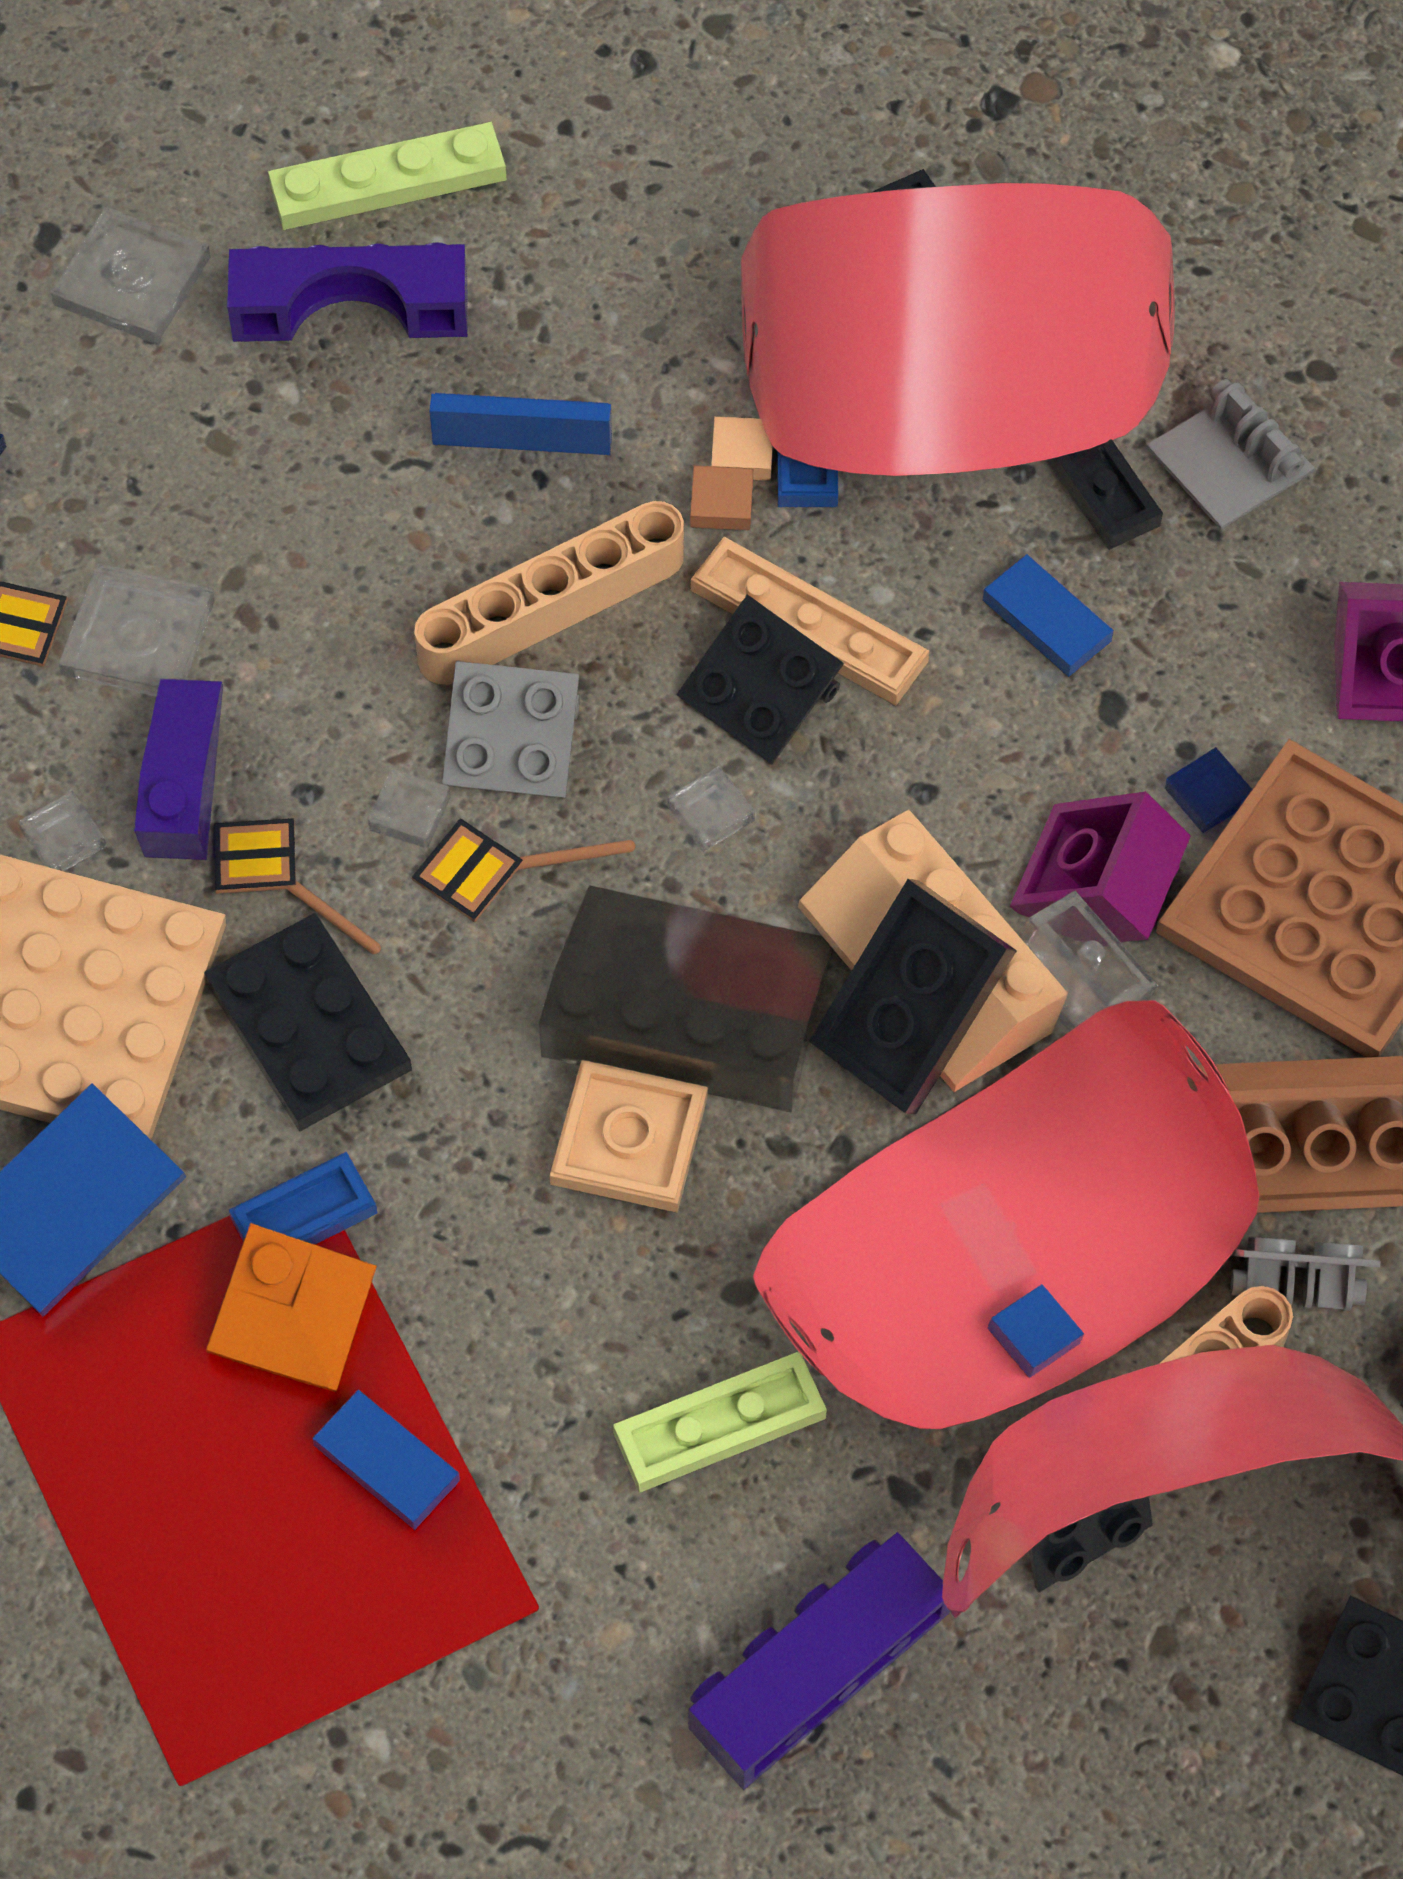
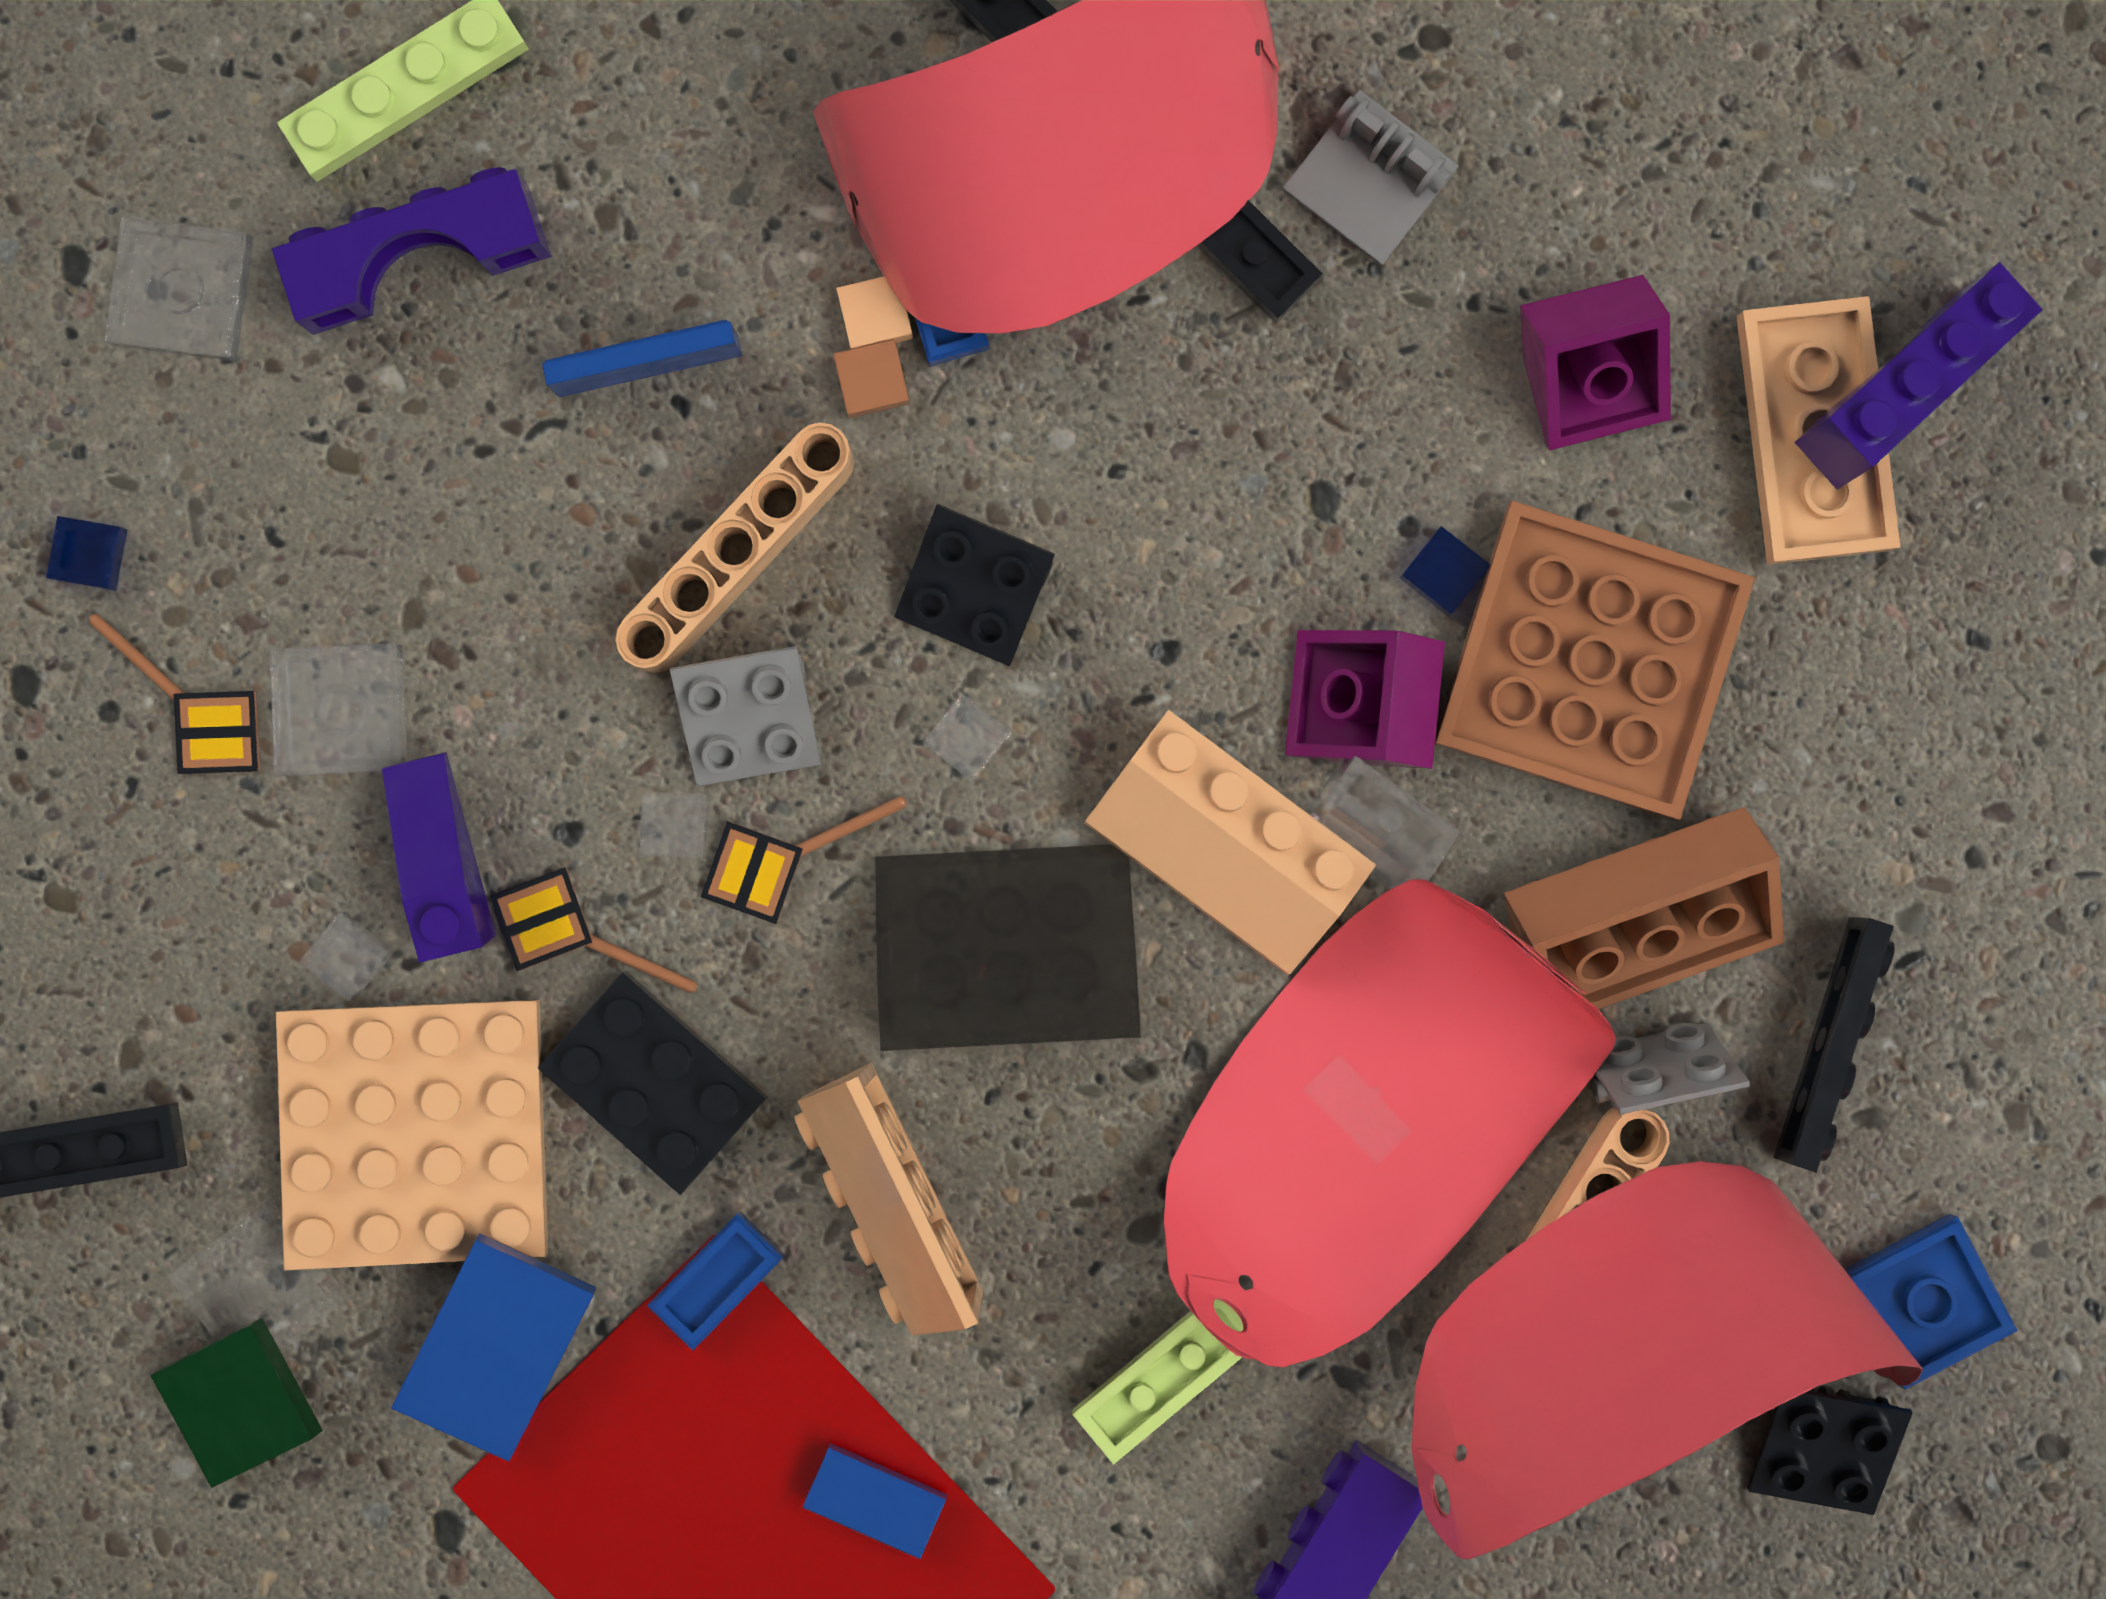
camera: 20 degrees left, 25 degrees up
(291, 1308) = (741, 1386): orange plate -> none
(499, 1161) = (892, 1204): none -> light nougat slope
(629, 1136) = (996, 1115): light nougat plate -> none
(870, 651) = (1000, 494): light nougat tile -> none
(912, 996) = (1228, 910): black plate -> none
(1035, 1330) = (1429, 1198): blue tile -> none
(1047, 615) = (1235, 418): blue tile -> none

